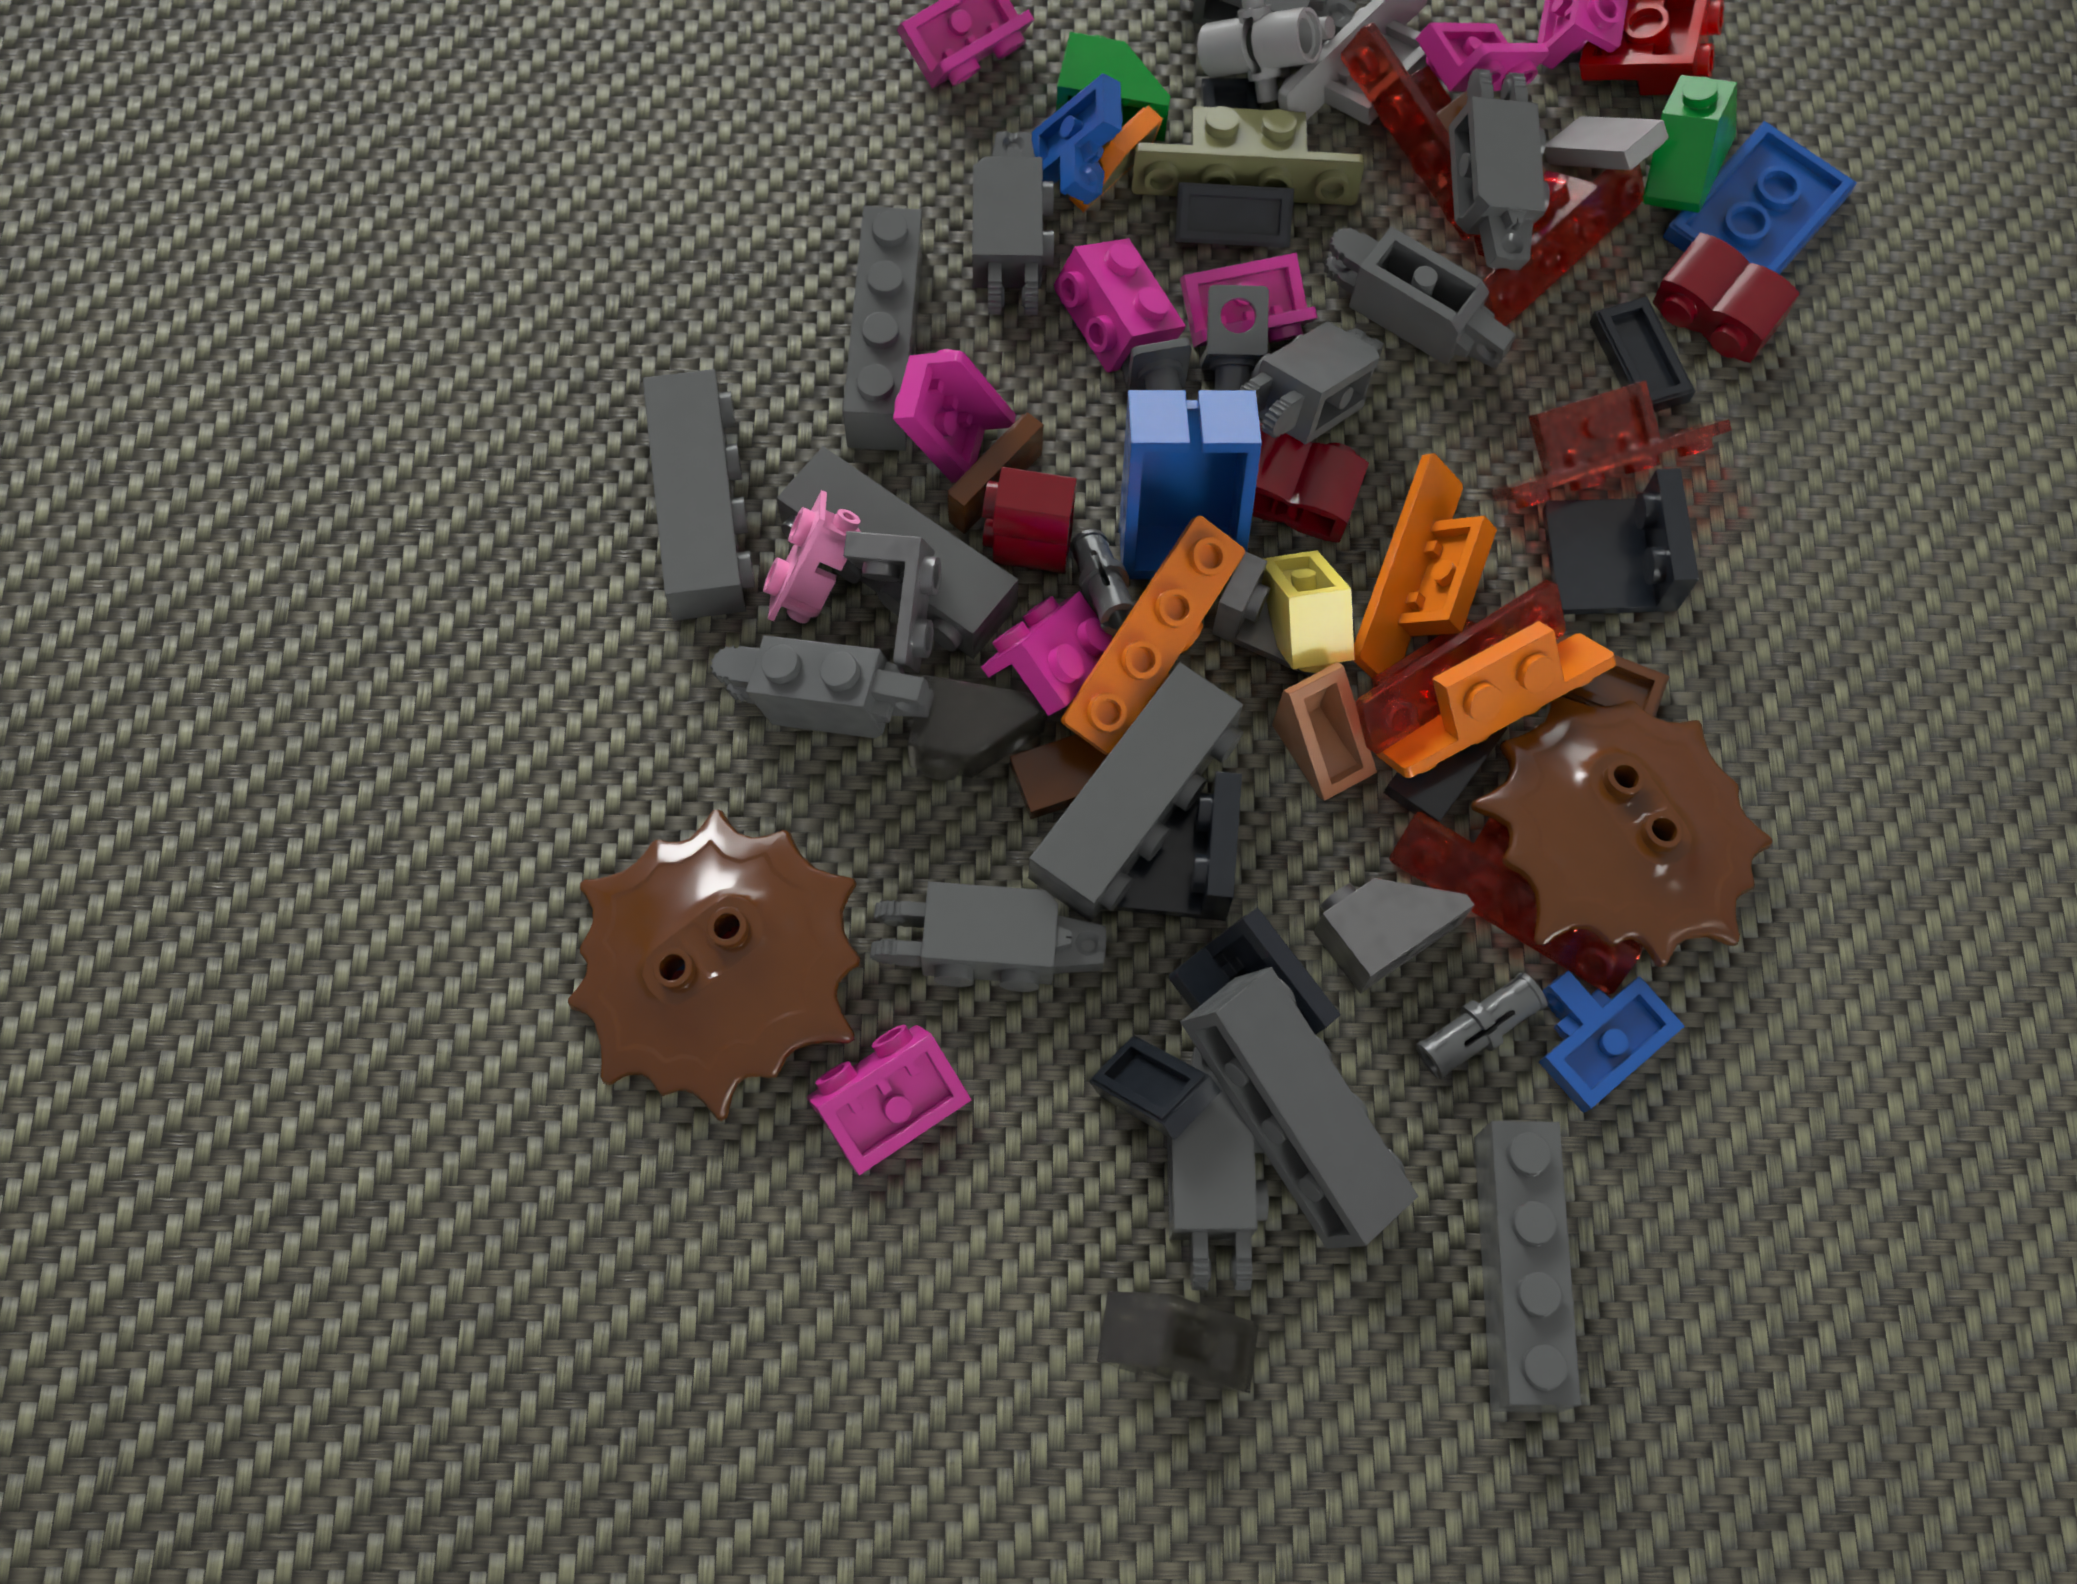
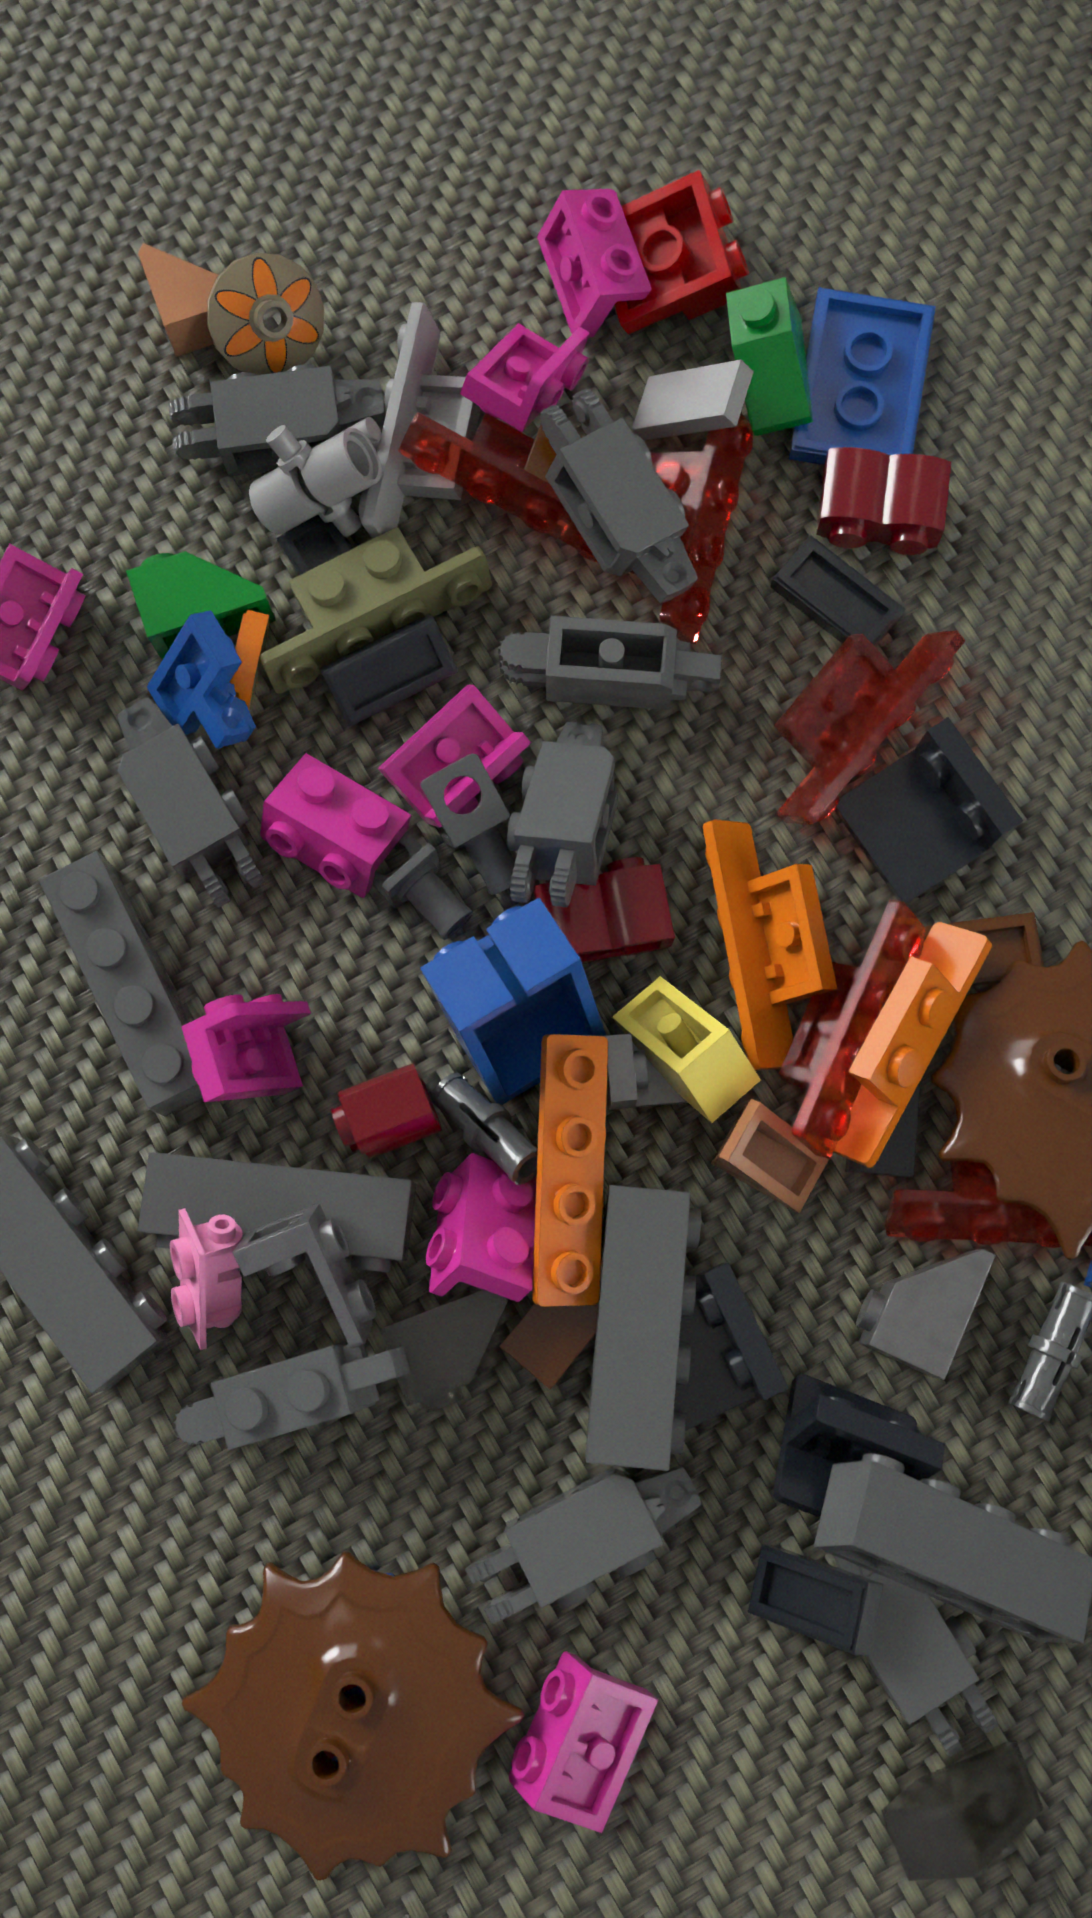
camera: 25 degrees left, 10 degrees up
(1014, 449) = (321, 1071): reddish brown tile -> none

